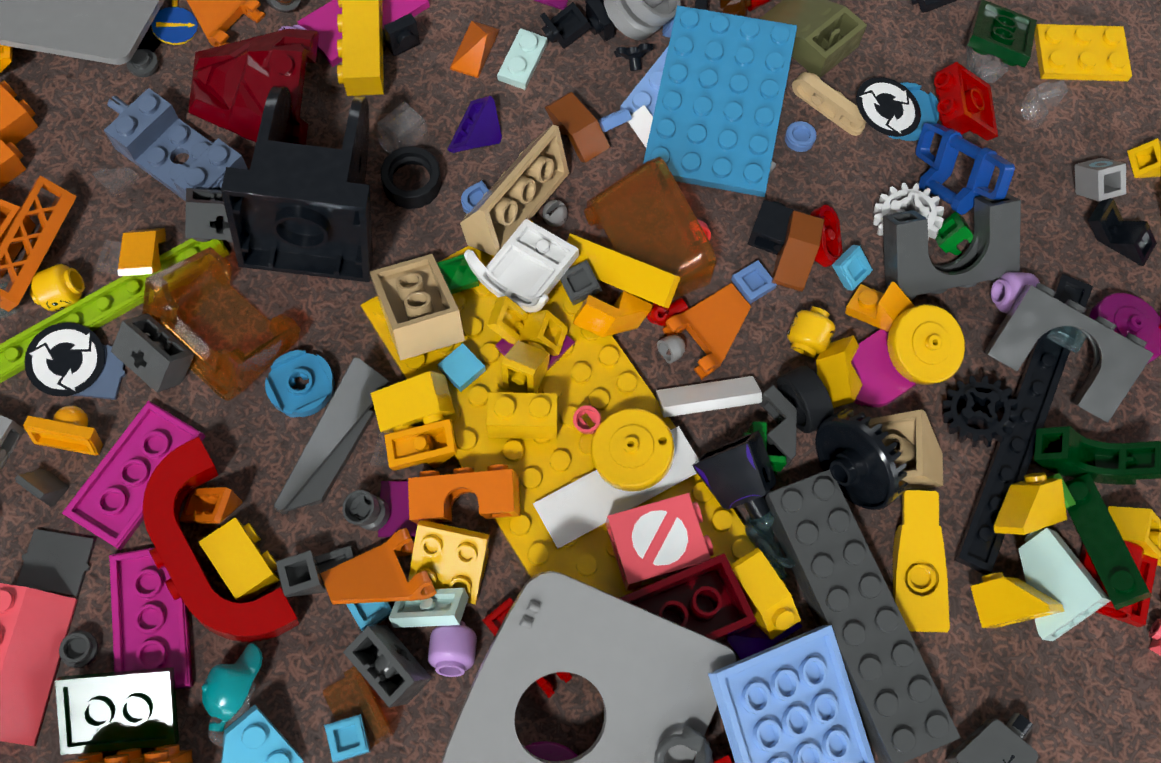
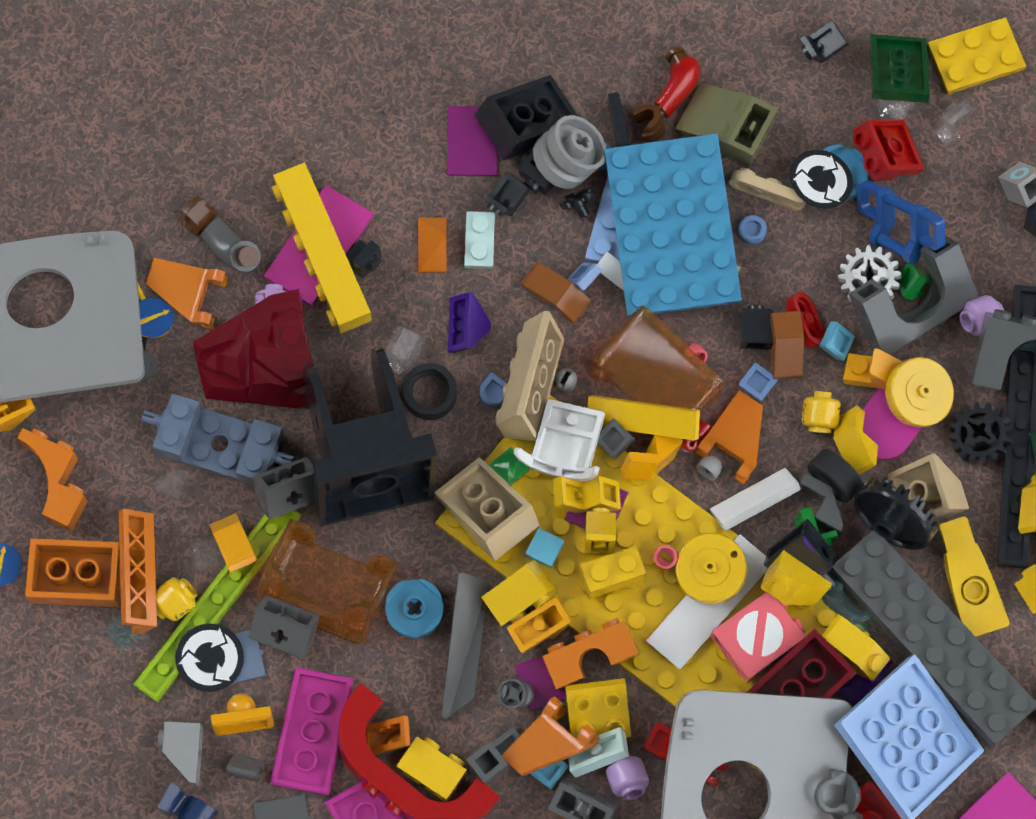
camera: 15 degrees left, 5 degrees up
(720, 495) = (794, 582): none -> yellow slope

